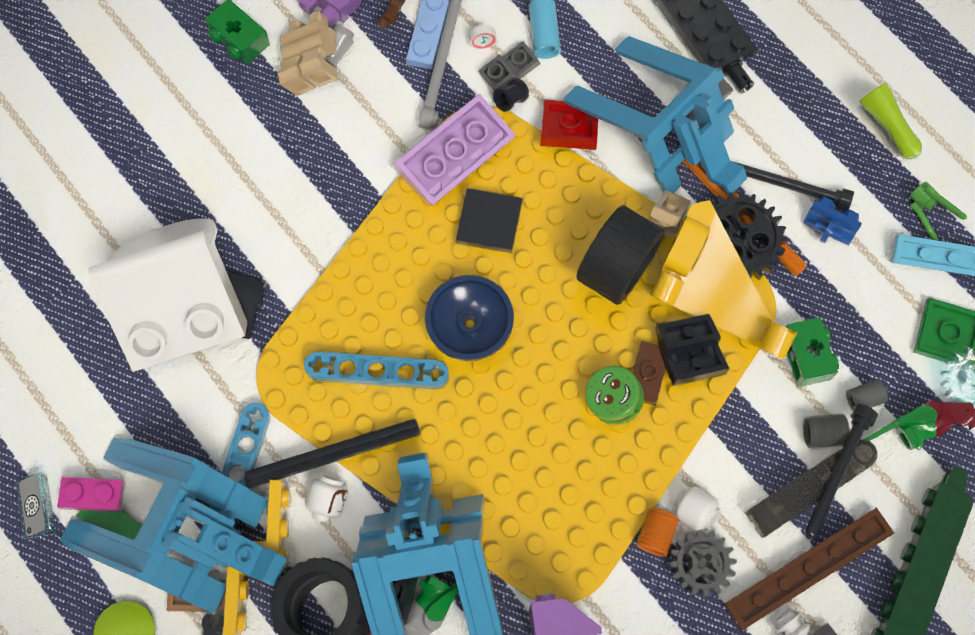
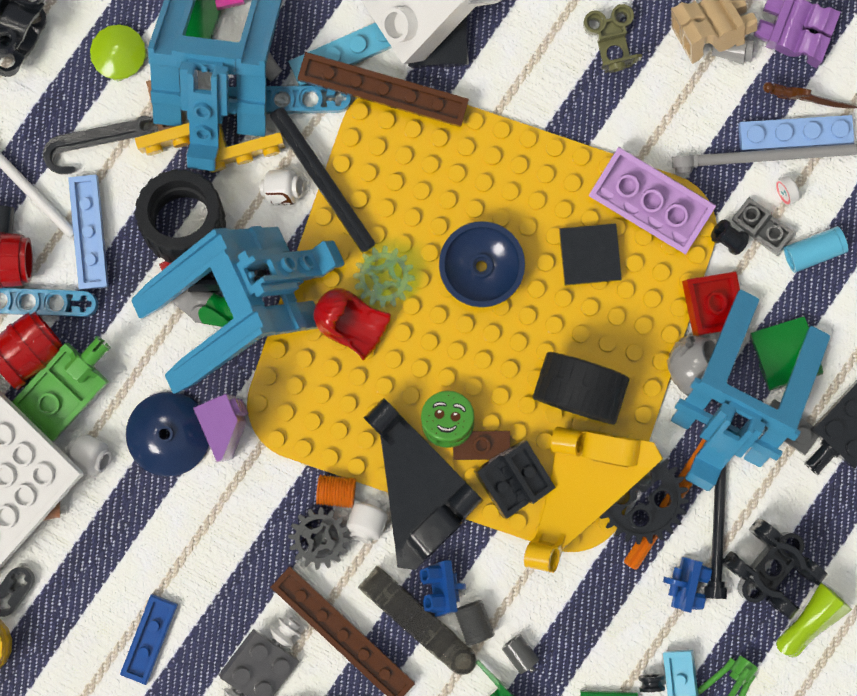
camera: 75 degrees right, 15 degrees up
(211, 402) = (348, 49): none -> medium azure plate
(261, 367) = (383, 89): none -> reddish brown plate
(283, 146) = (612, 33): none -> olive piece
(364, 362) = (411, 180): dark azure beam -> none
(460, 409) = (389, 265): none -> clear light blue gear
(486, 464) = (350, 321): none -> red piece
(621, 155) = (689, 360): none -> light grey piece
(632, 82) = (778, 350): none -> green slope
(669, 212) = (649, 424): tan slope -> none
(680, 443) = (423, 489): none -> black panel
(786, 451) = (444, 588): none -> blue hips
(806, 367) = (531, 590): green brick -> none
(825, 127) = (775, 550): none -> black piece
(862, 419) = (489, 652): black piece -> none
(921, 280) = (651, 683): none -> black bush

